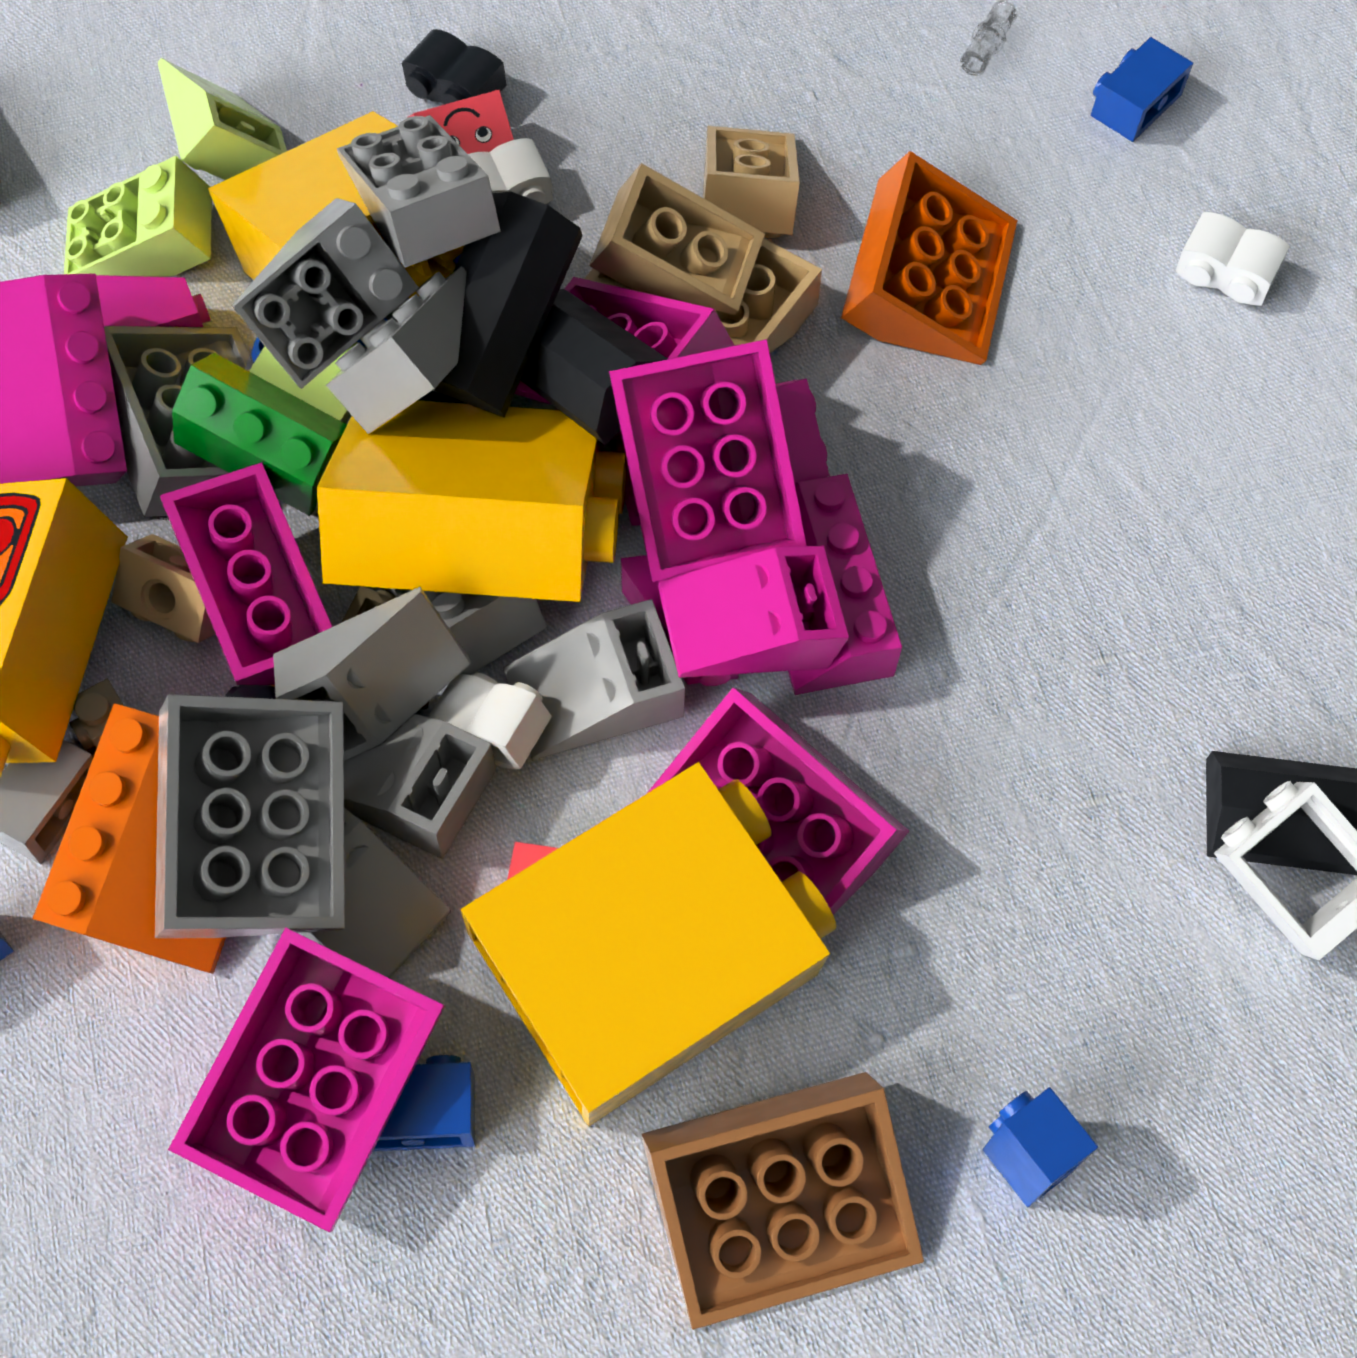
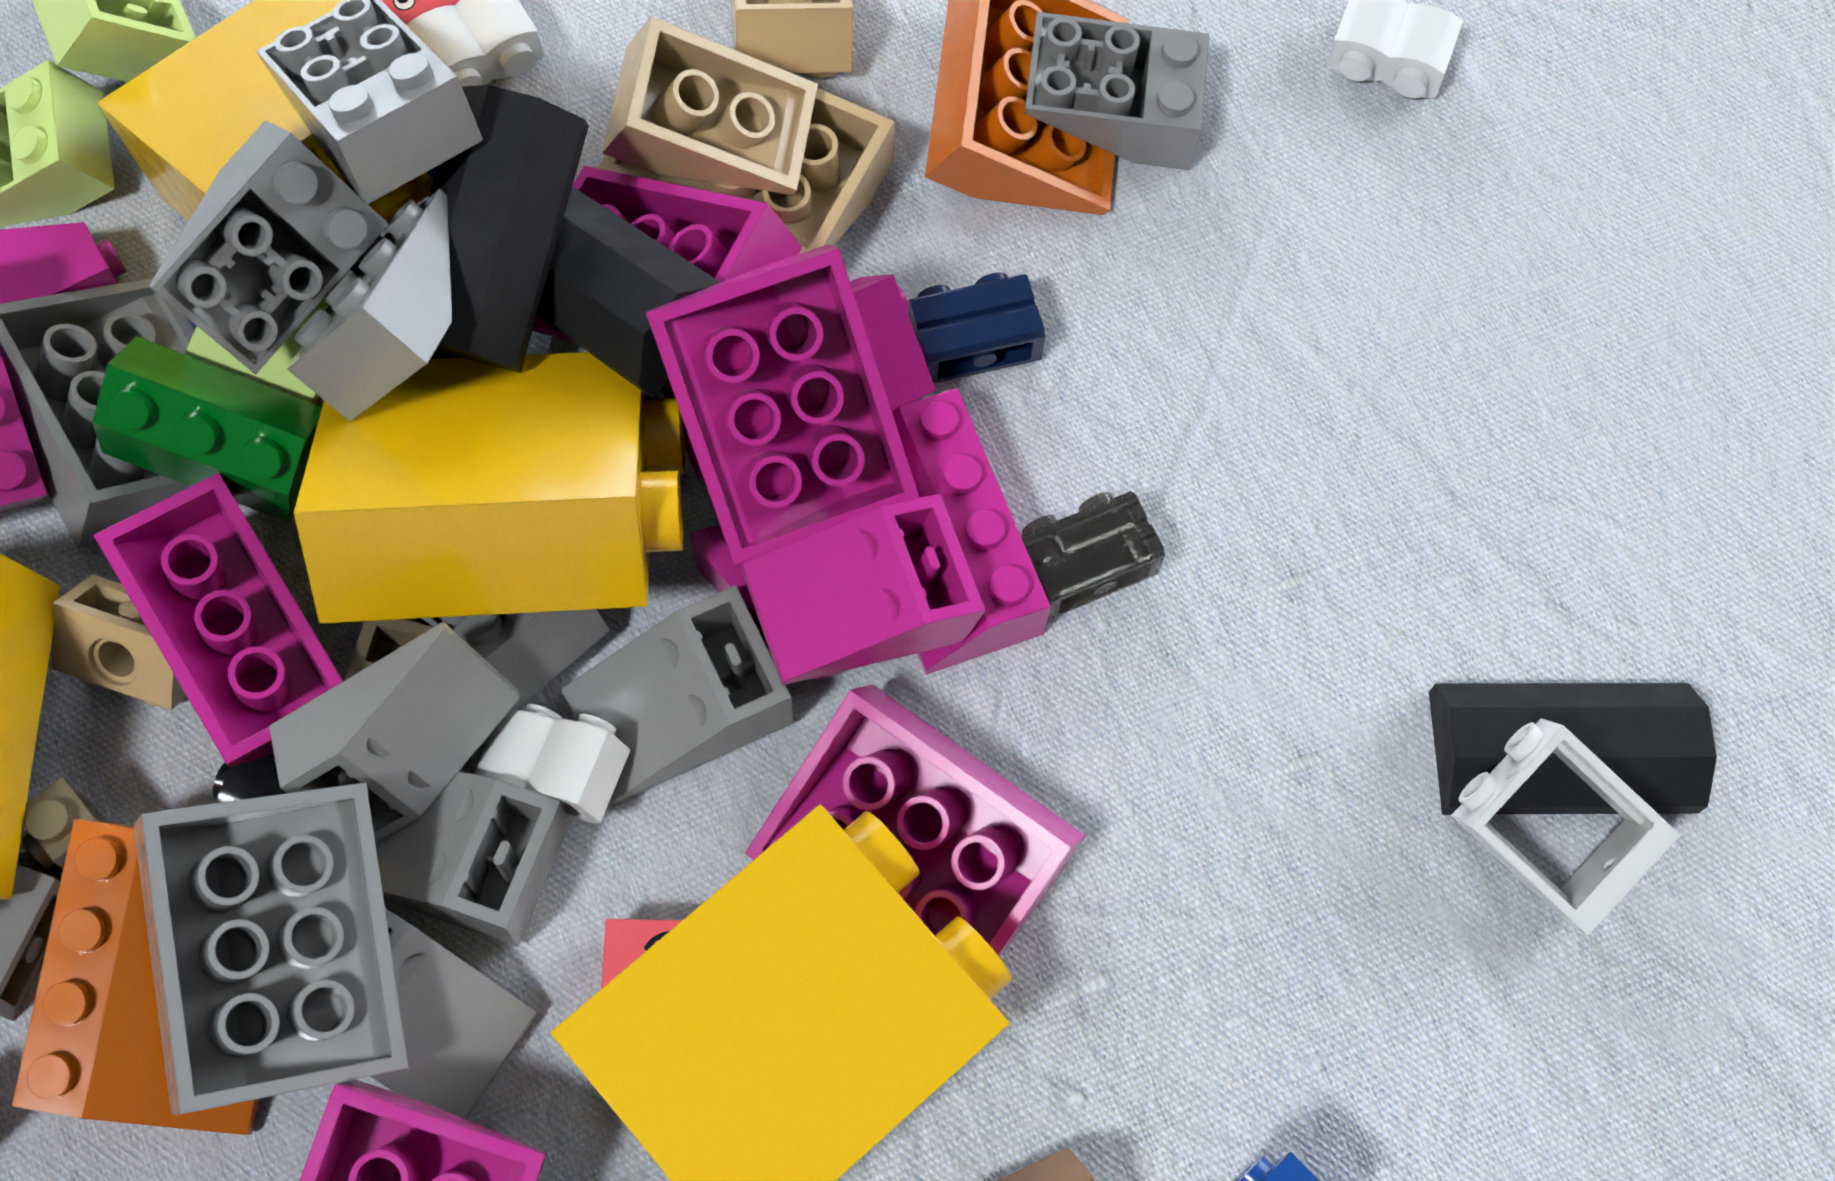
camera: 10 degrees left, 5 degrees up
(870, 434) = (977, 326): none -> dark blue brick
(942, 614) = (1093, 551): none -> clear smoke brick
(1006, 266) = (1120, 86): none -> light grey slope

